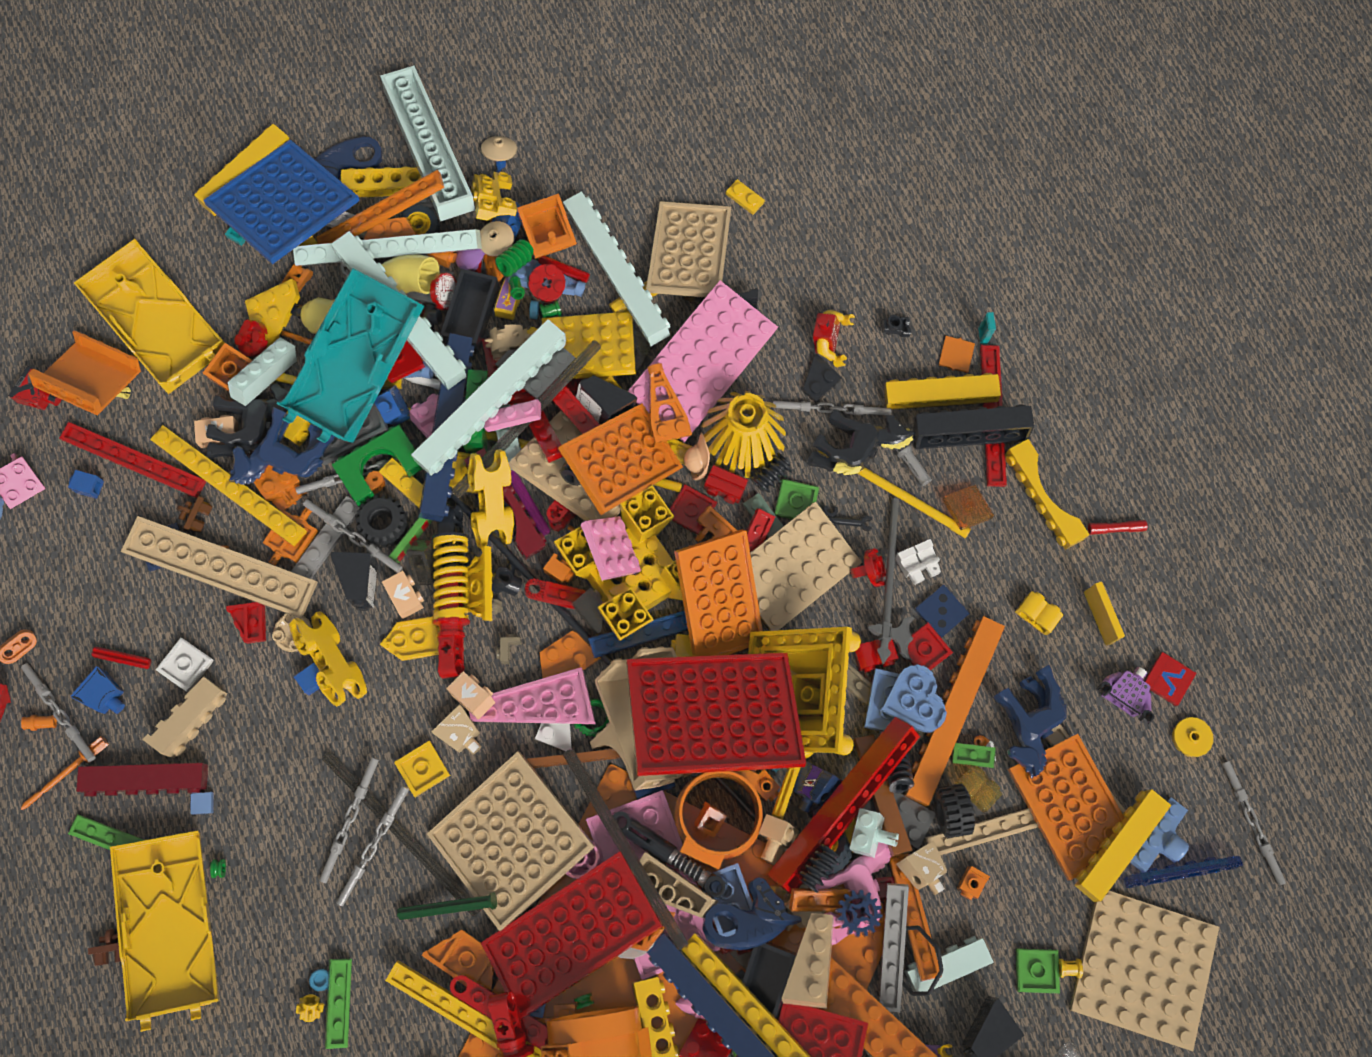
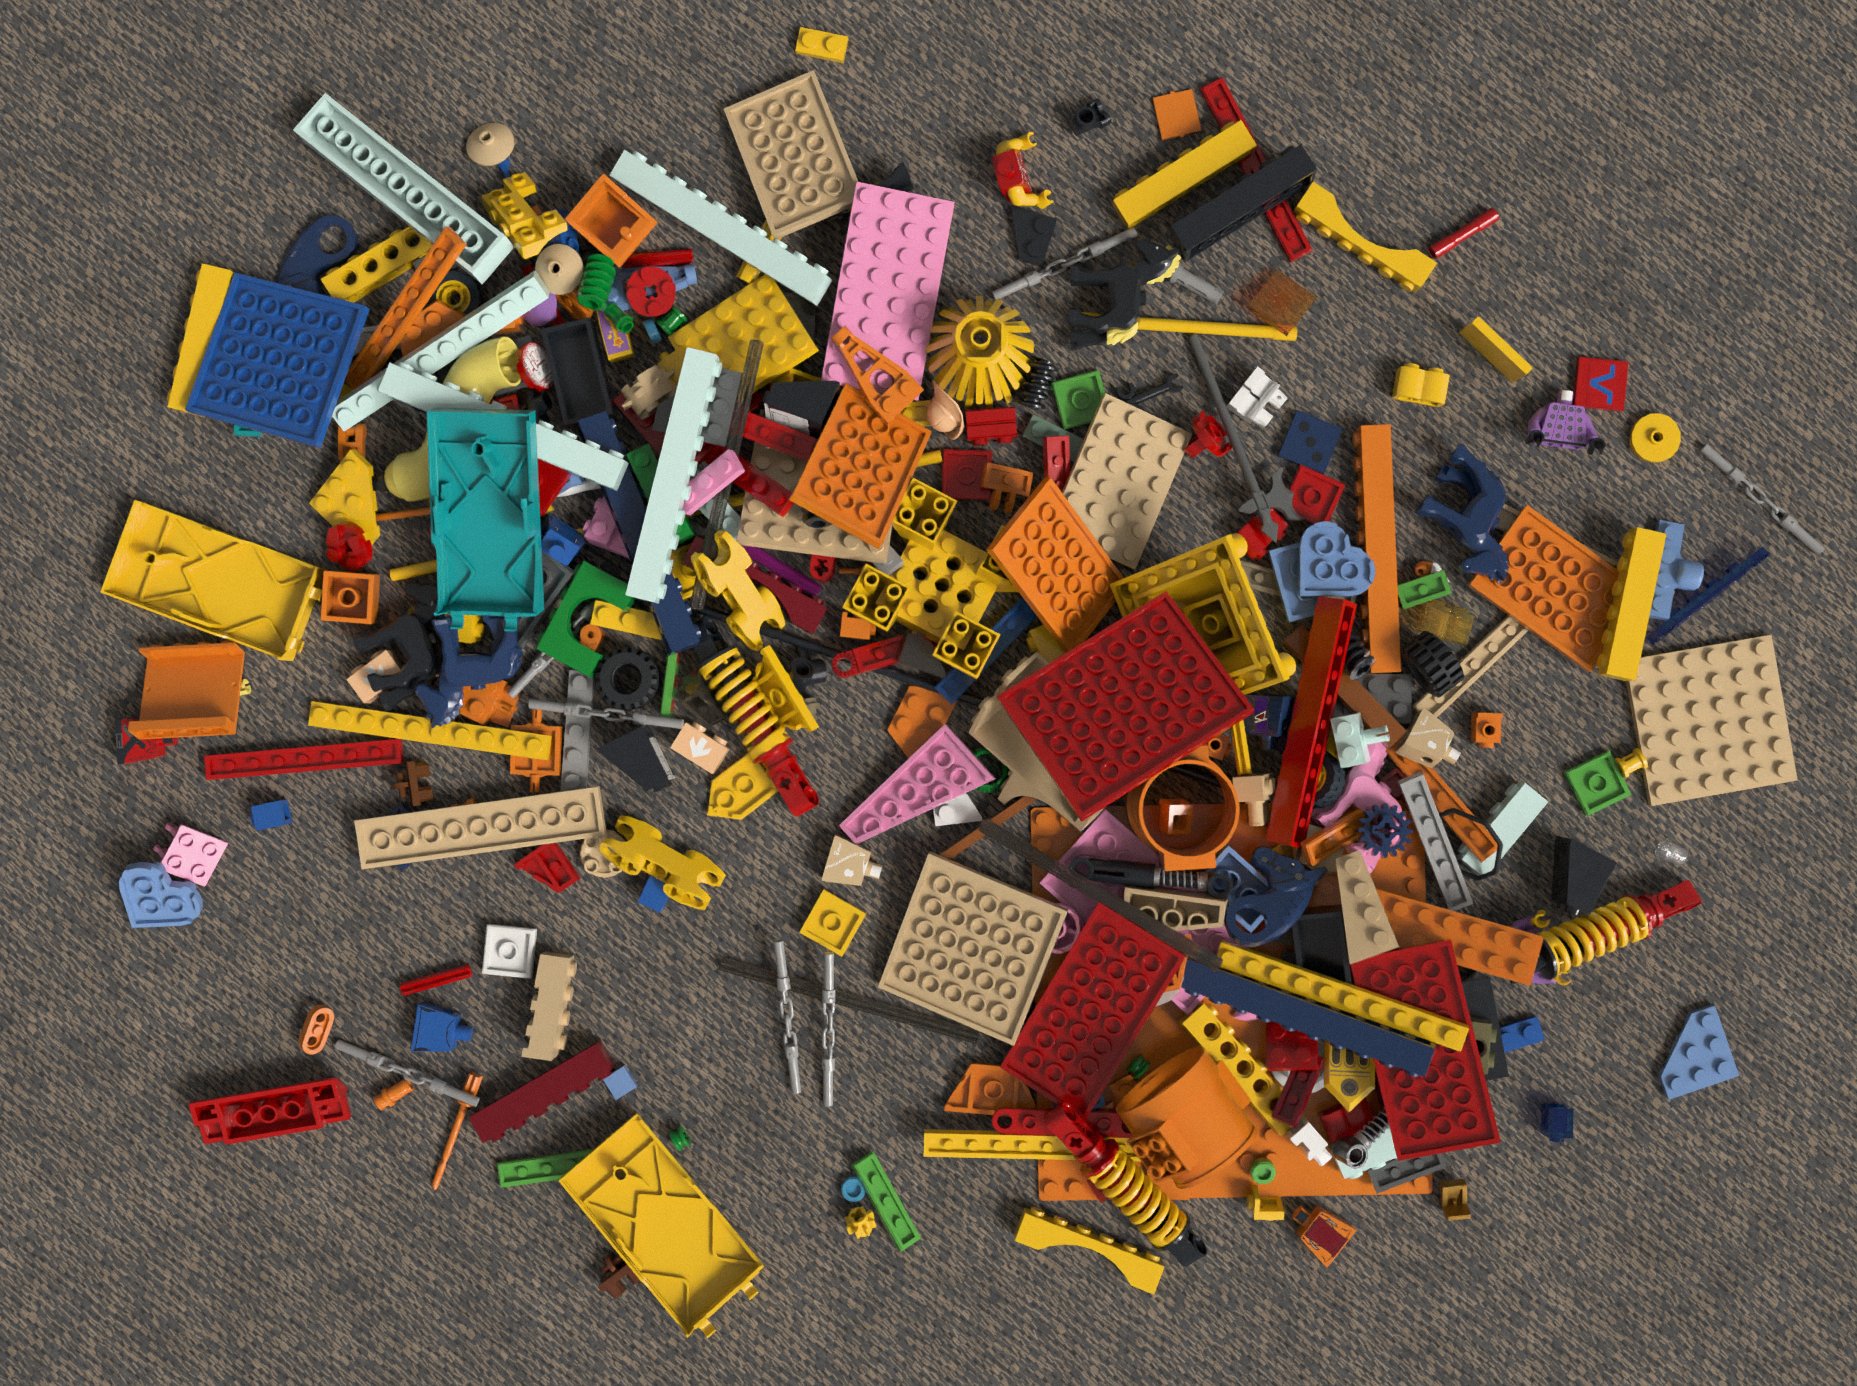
camera: 25 degrees left, 15 degrees up
(262, 371) = (387, 580): light aqua brick -> none
(446, 907) = (945, 1050): dark green axle -> none
(471, 695) = (841, 818): light nougat brick -> none
(503, 651) = (848, 751): dark tan bracket -> none
(610, 547) = (909, 579): bright pink plate -> none
(819, 867) = (1320, 807): black piece -> none
(987, 328) = (1199, 65): teal tile -> none

